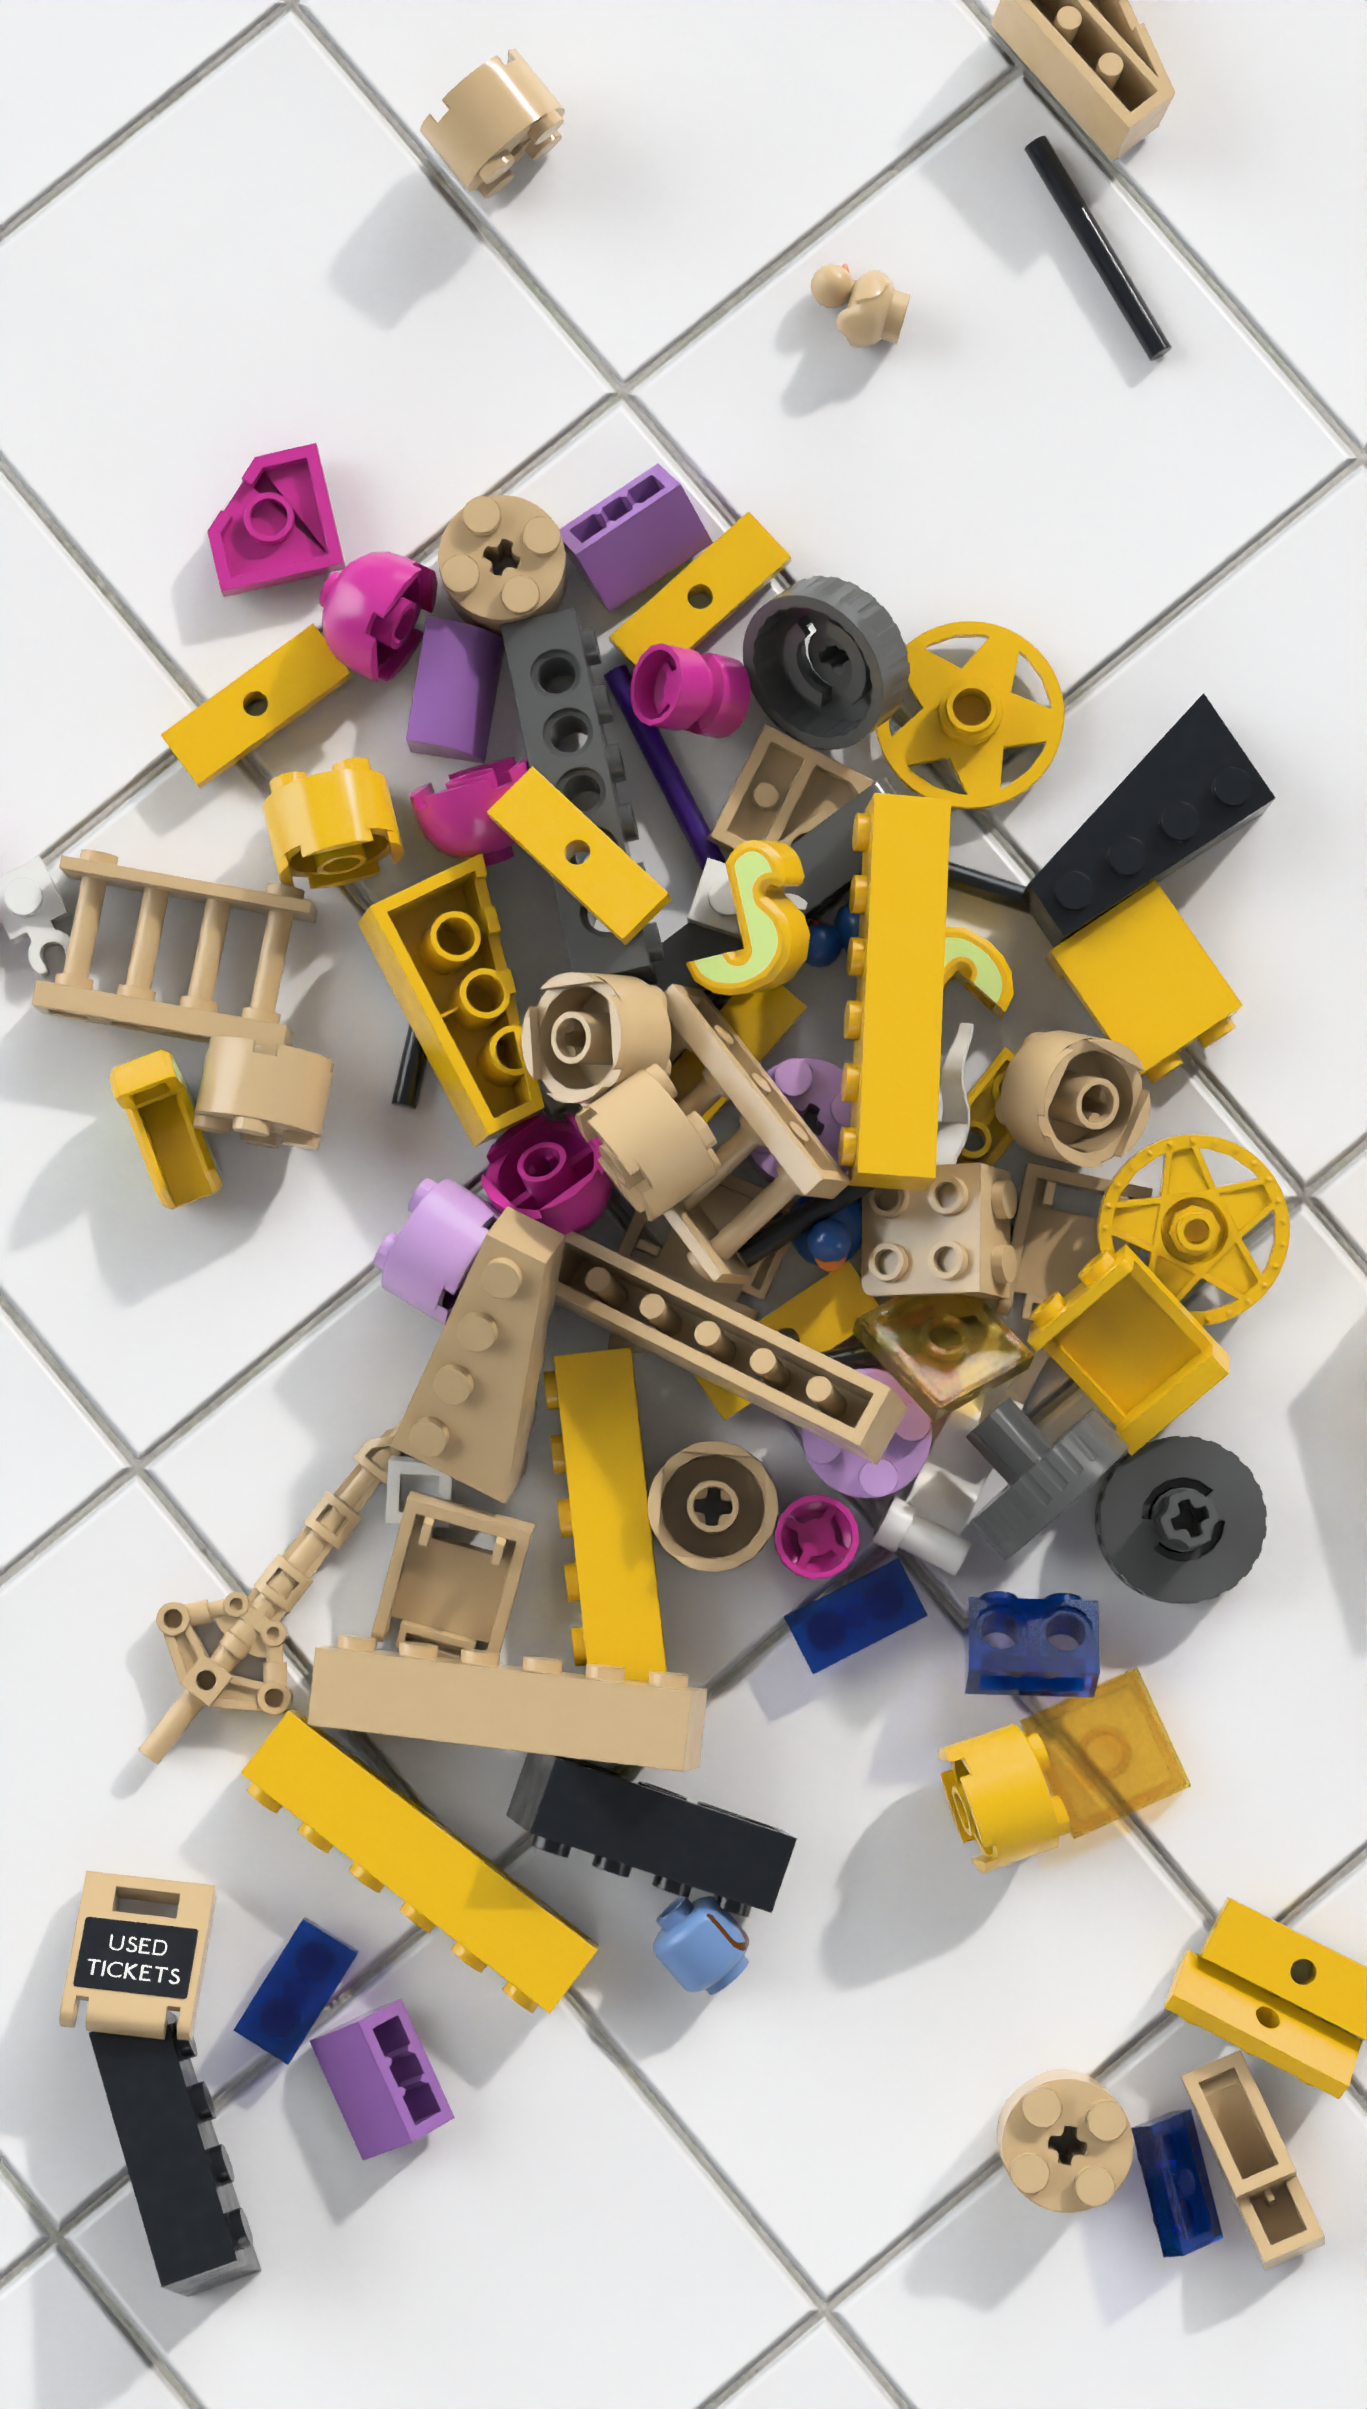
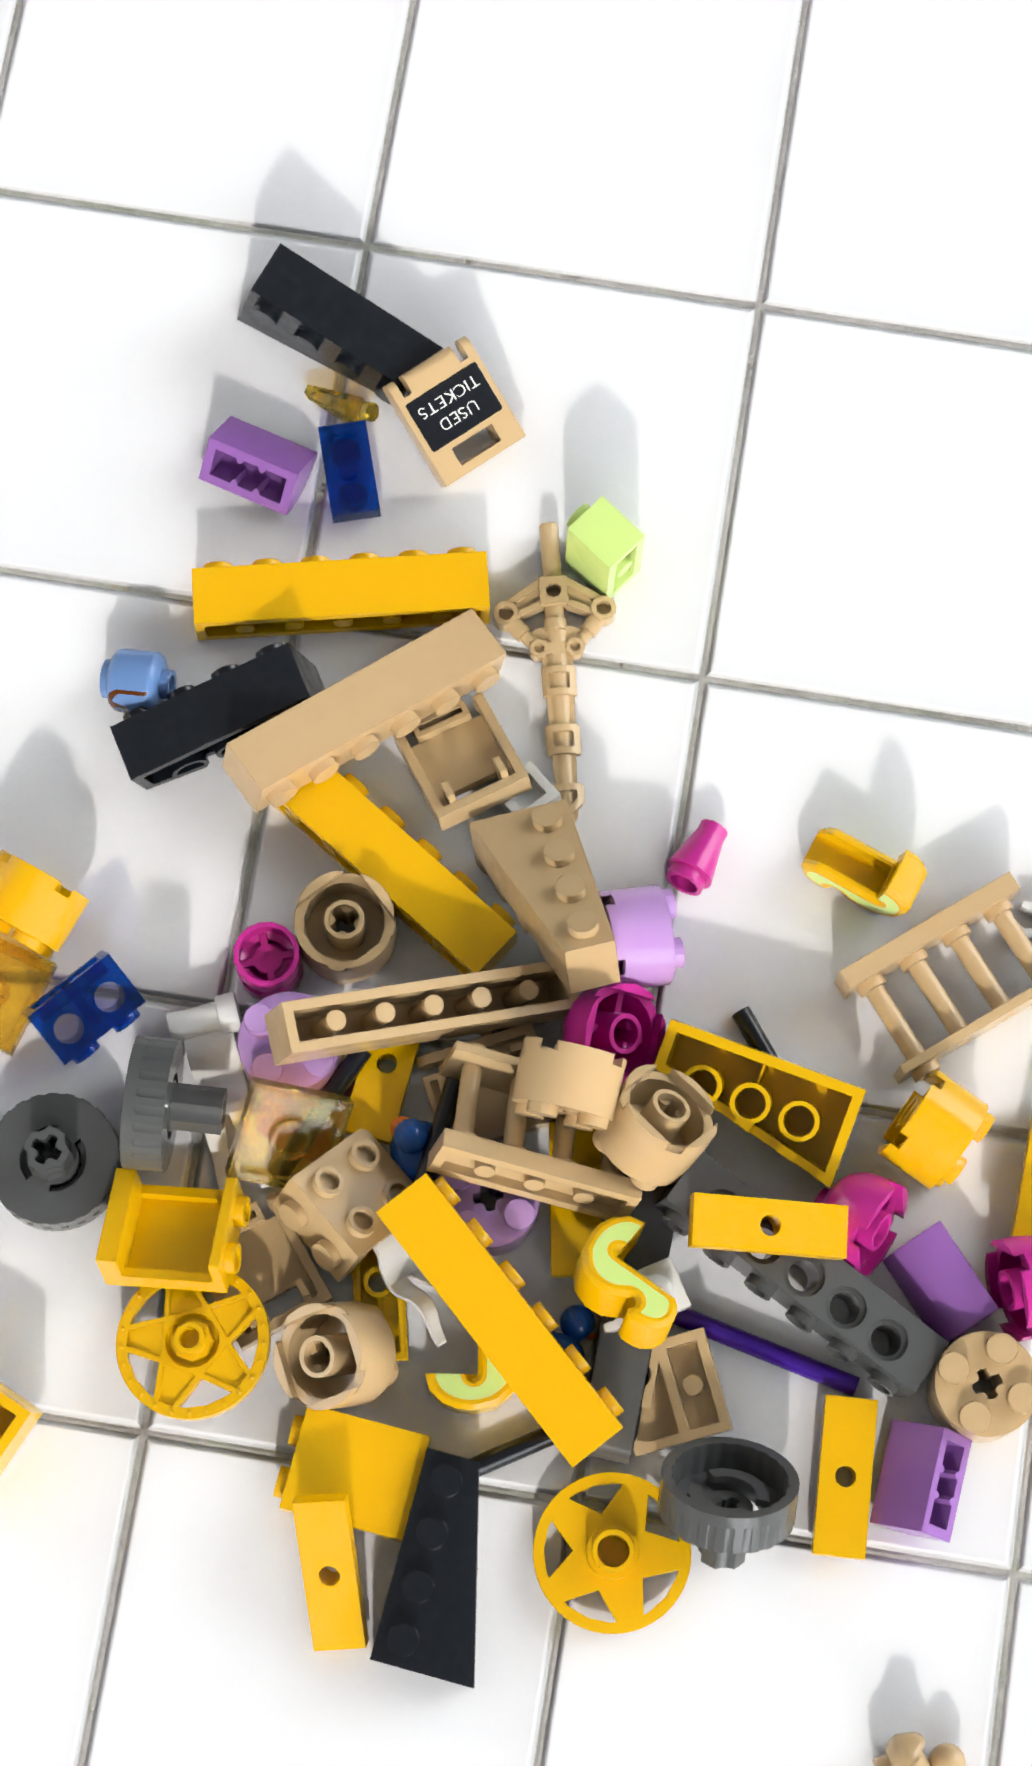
camera: 130 degrees right, 10 degrees down
(122, 1675) = (603, 547): none -> yellowish green brick
(238, 2070) = (343, 405): none -> clear yellow bar
(264, 1093) = (826, 936): tan brick -> none
(312, 1285) = (696, 860): none -> dark pink cone
(690, 691) = (797, 1405): dark pink wheel -> none
(855, 1616) = (206, 940): clear blue plate -> none
(1243, 908) = (332, 1597): none -> yellow tile

